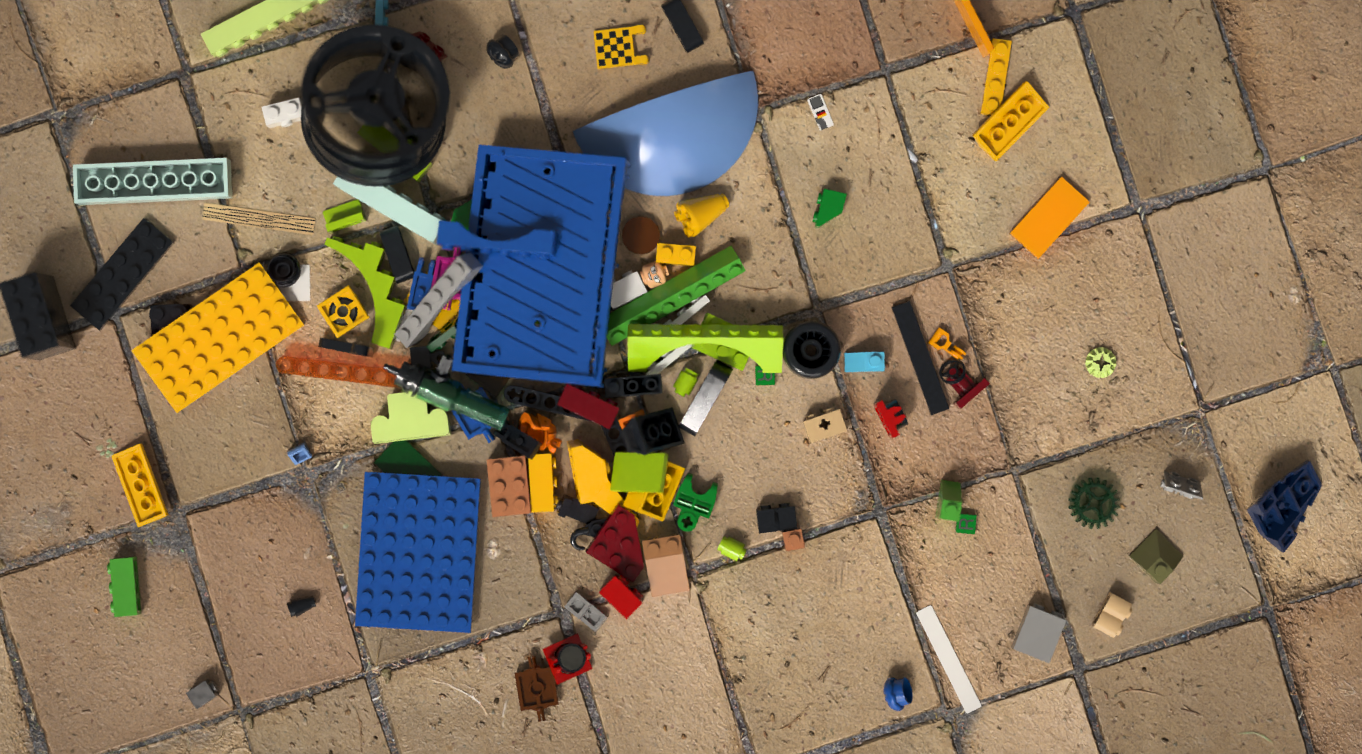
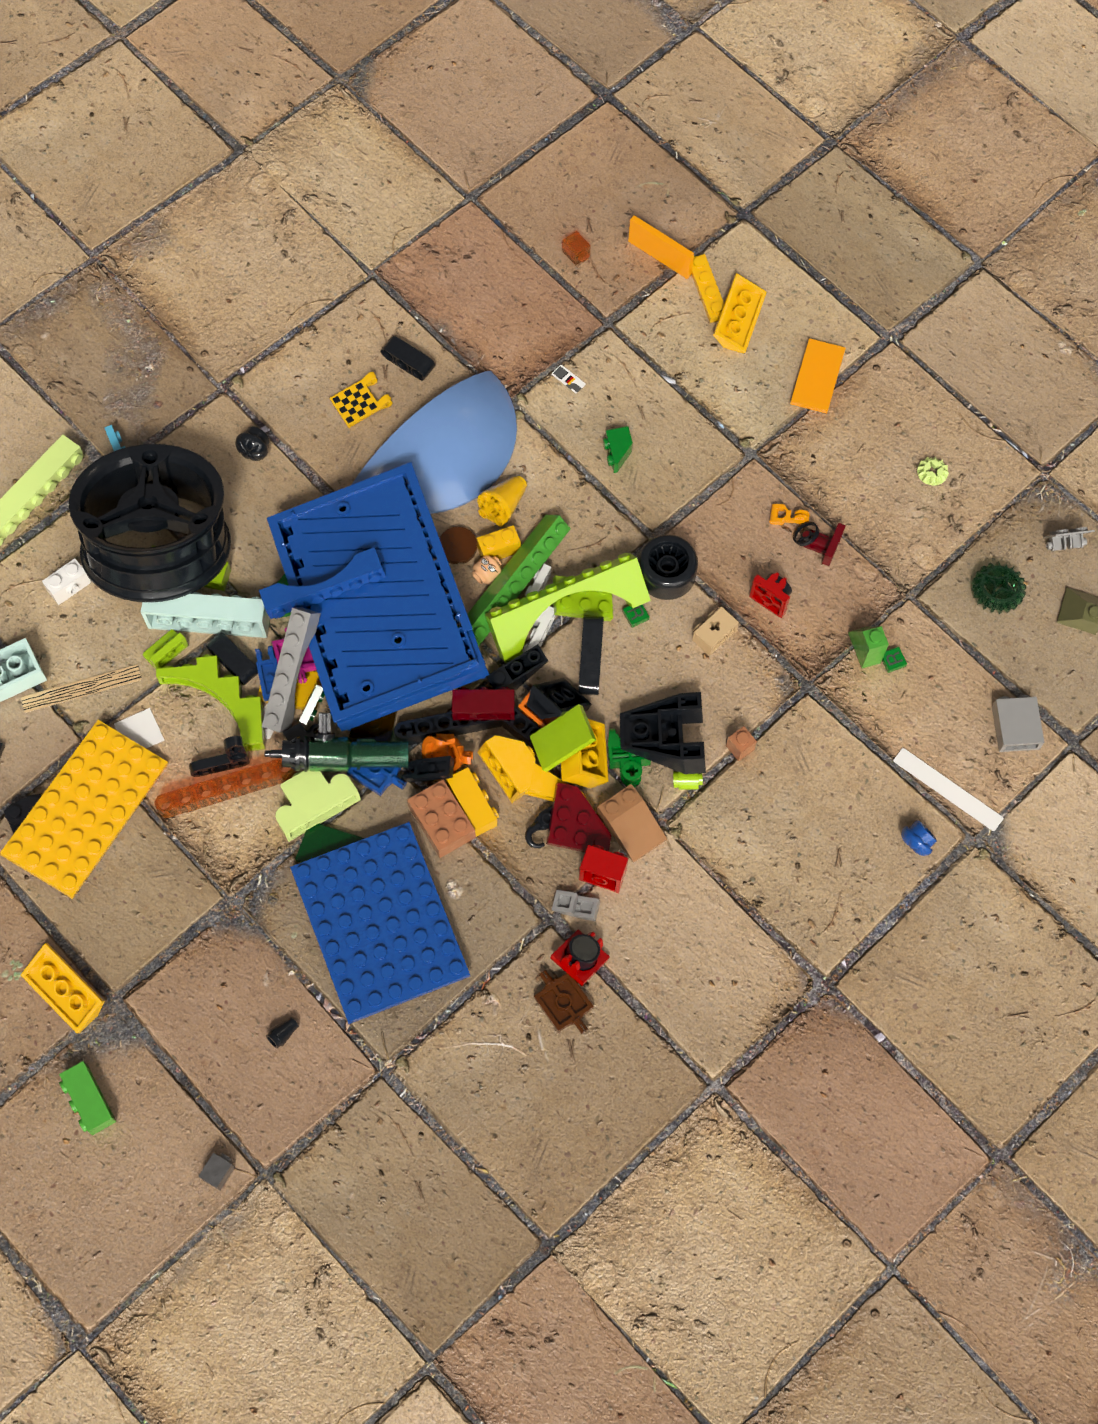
camera: 30 degrees left, 20 degrees down
(284, 270) = (126, 718): black piece -> none
(299, 453) = (216, 884): medium blue slope -> none
(343, 311) = (203, 729): yellow piece -> none
(572, 508) = (517, 810): black bracket -> none
(627, 289) = (471, 589): white brick -> none
(685, 382) = (564, 650): lime brick -> none
(723, 499) = (657, 732): none -> black wedge
(776, 519) = (715, 732): black piece -> none
(864, 362) = (722, 560): medium azure slope -> none
(920, 358) = (770, 537): black tile -> none
(1112, 614) = (1074, 676): tan brick -> none

